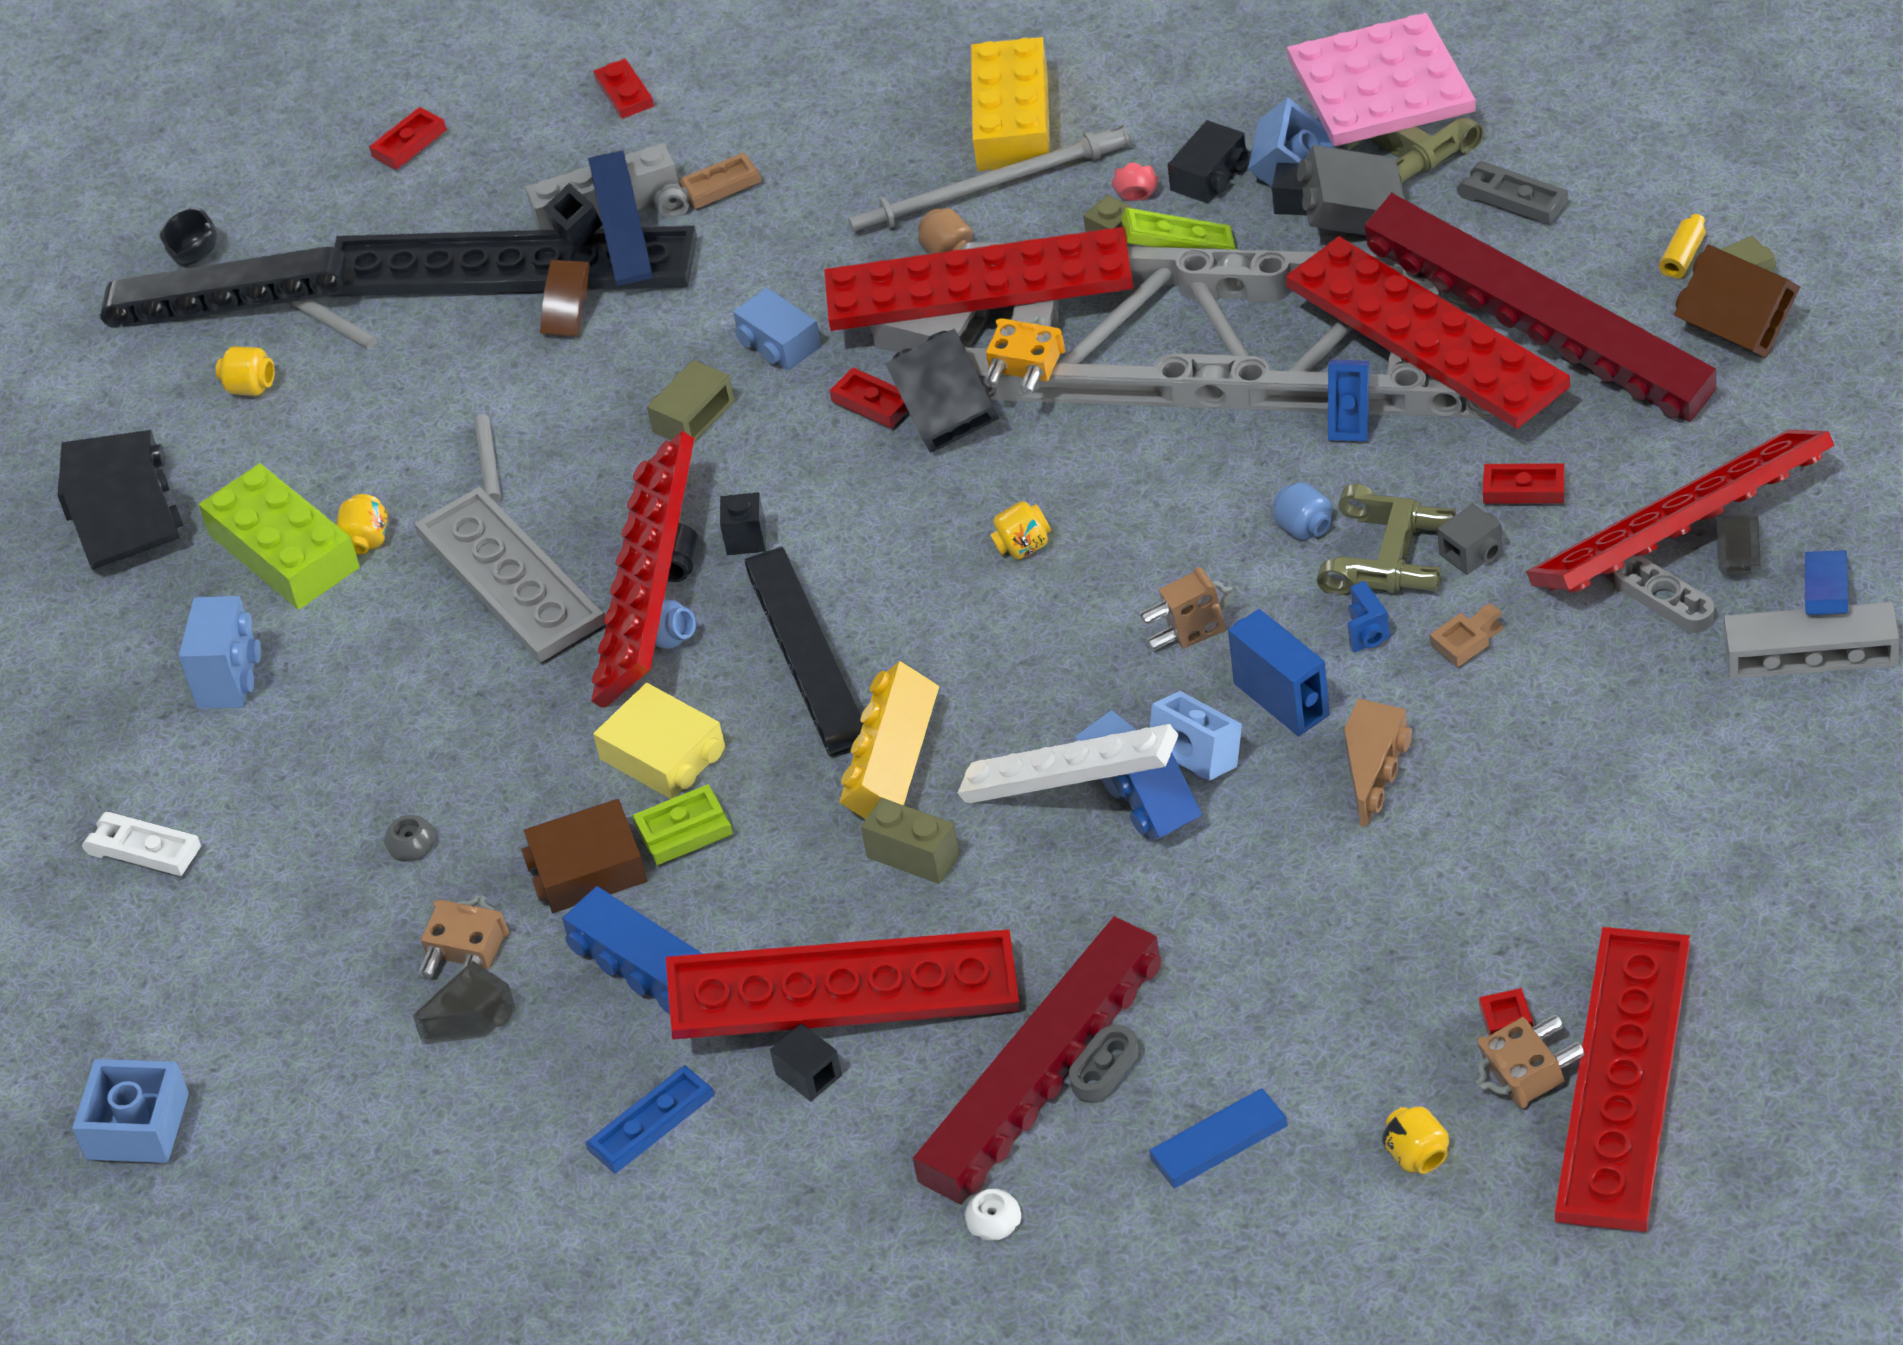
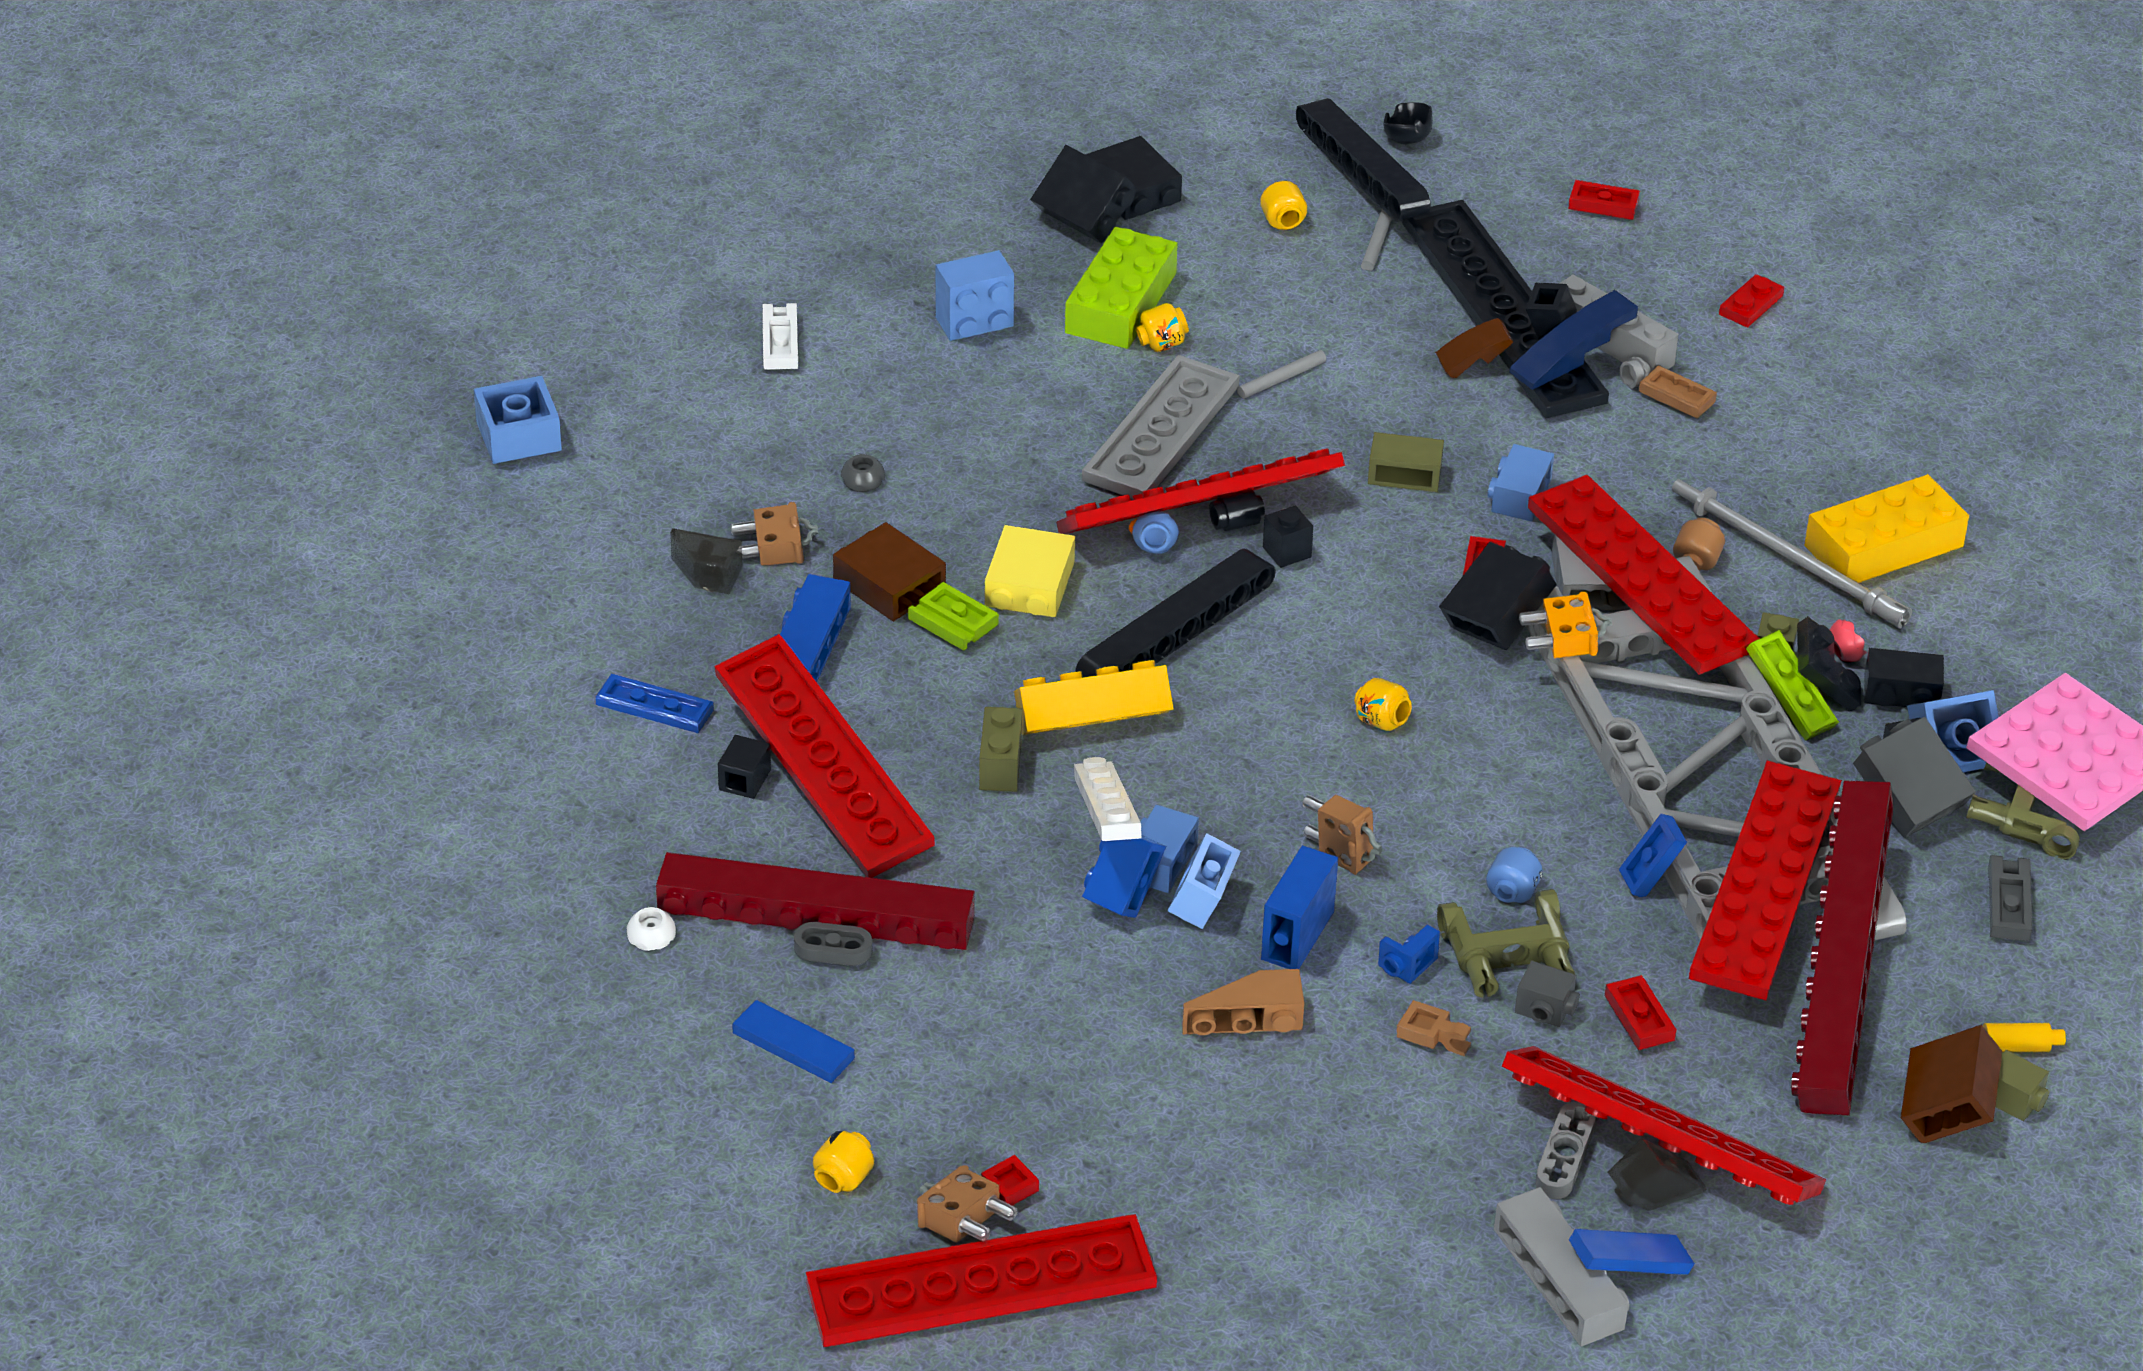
camera: 55 degrees right, 5 degrees down
(1172, 202) = (1819, 667): none -> black plate

